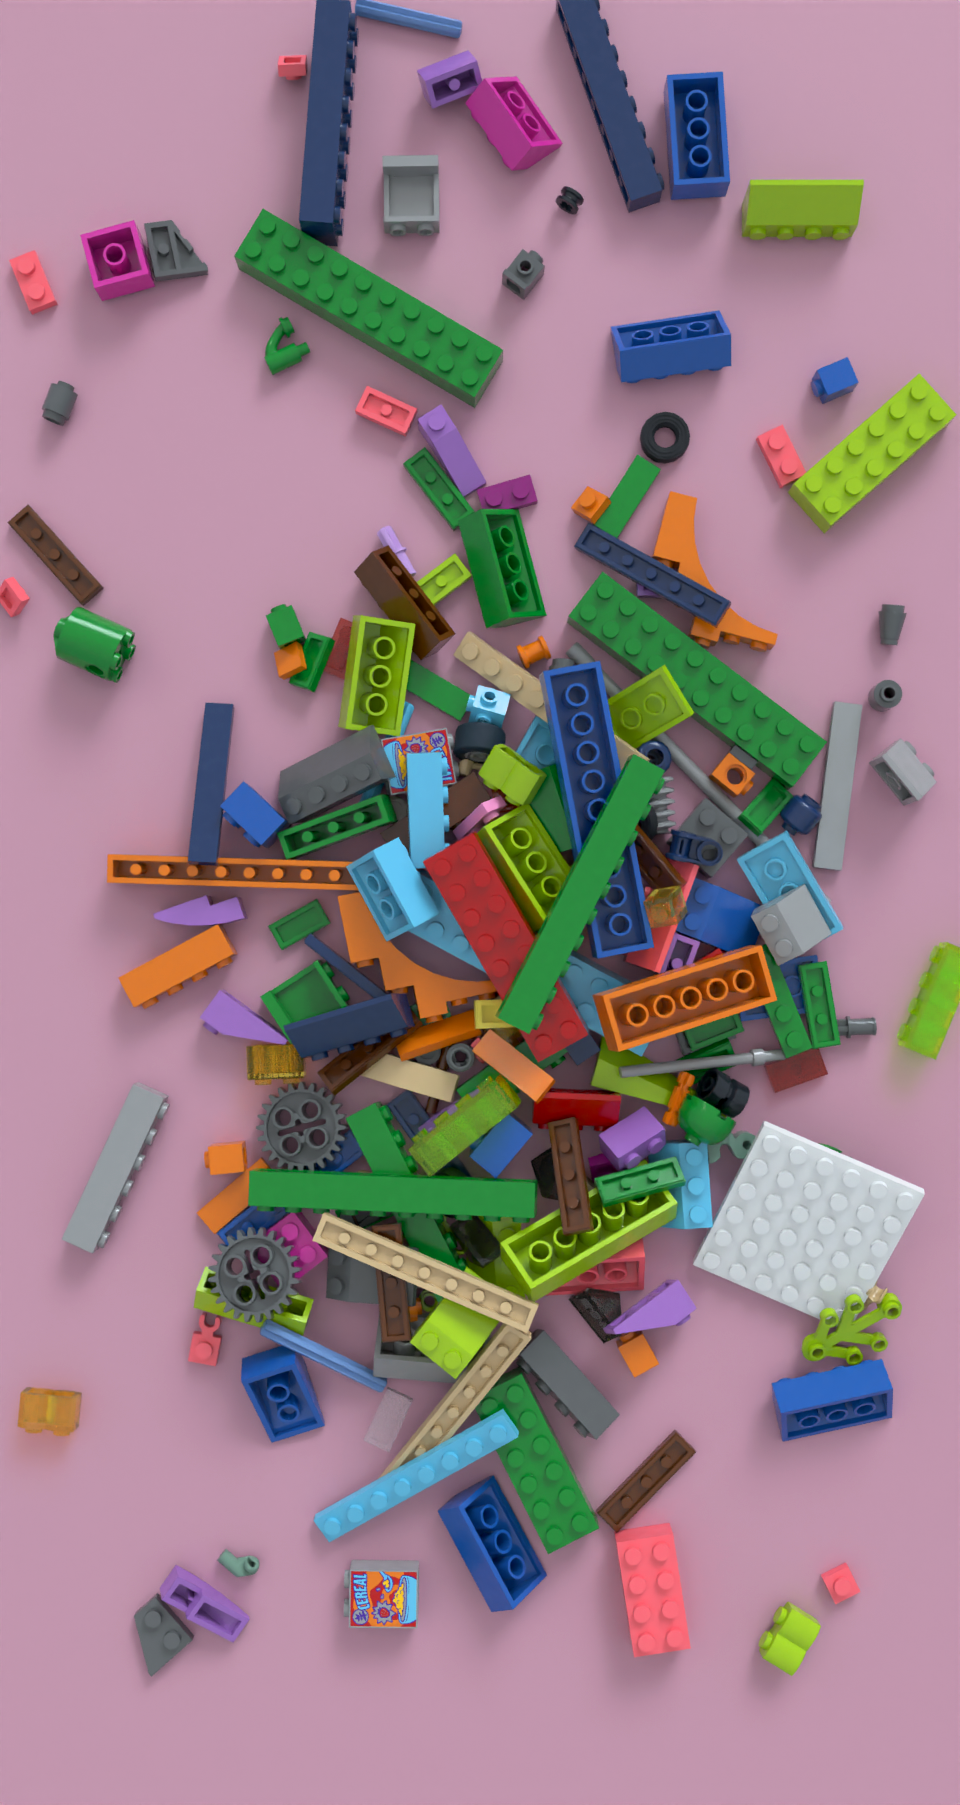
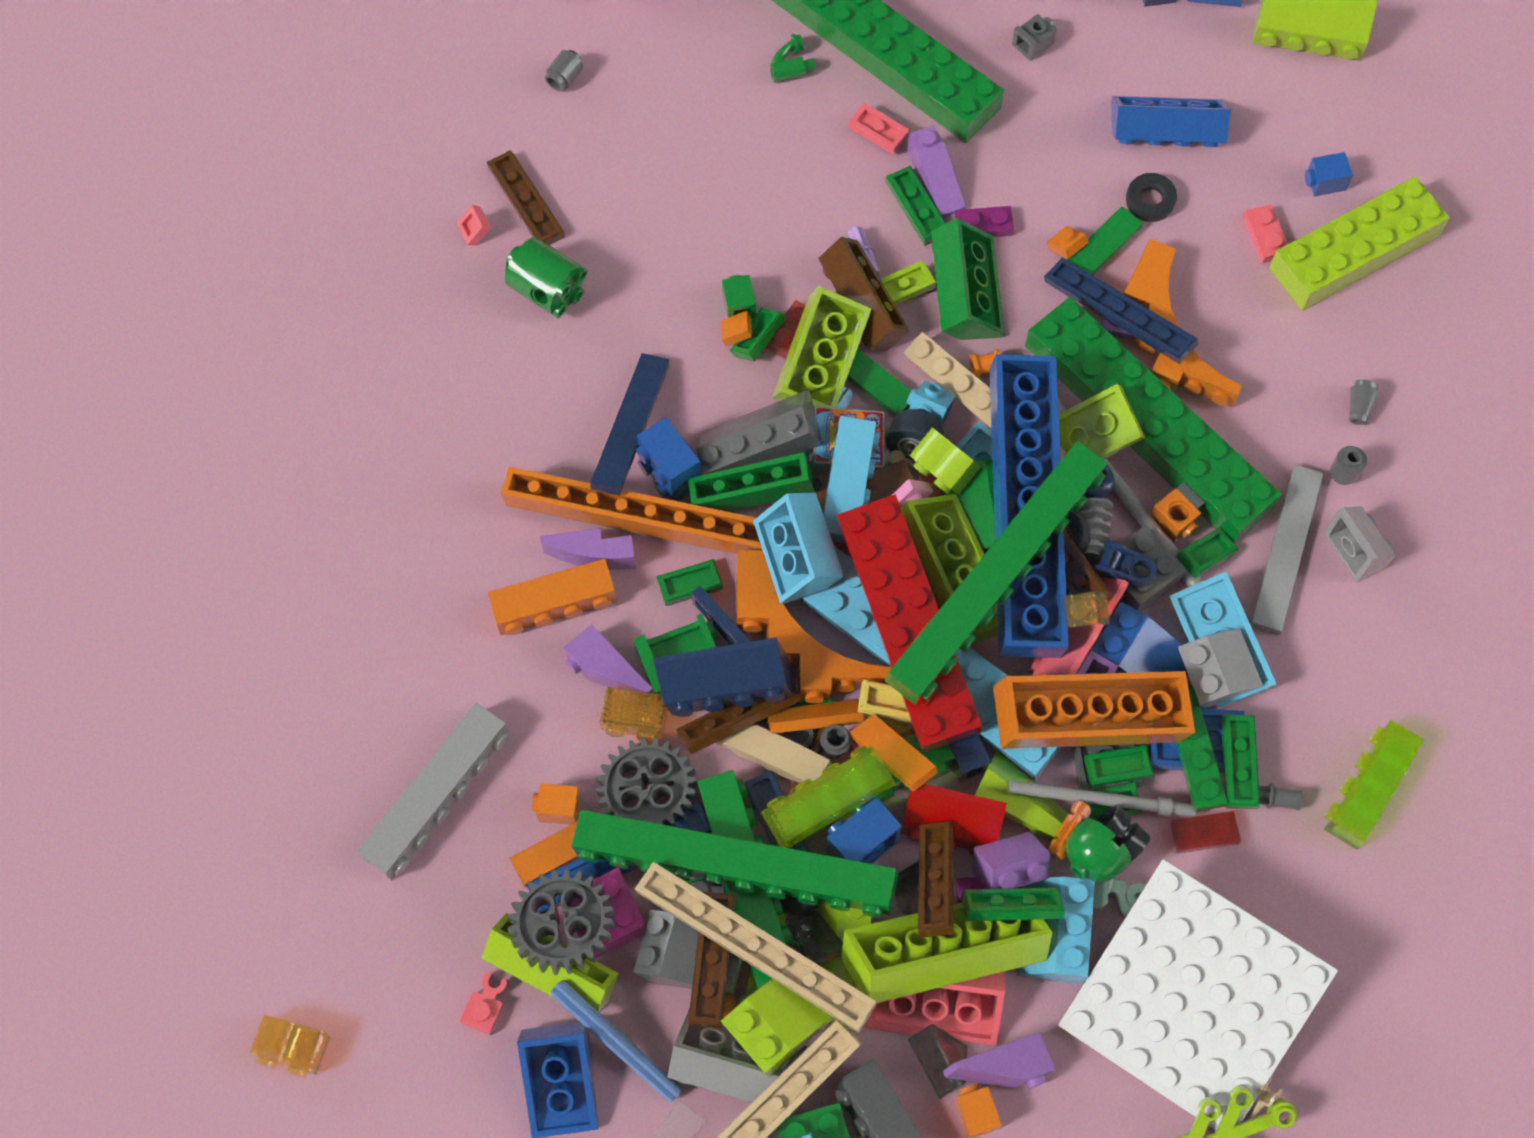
camera: 10 degrees right, 20 degrees down
(800, 815) = (1245, 566): dark blue head -> none

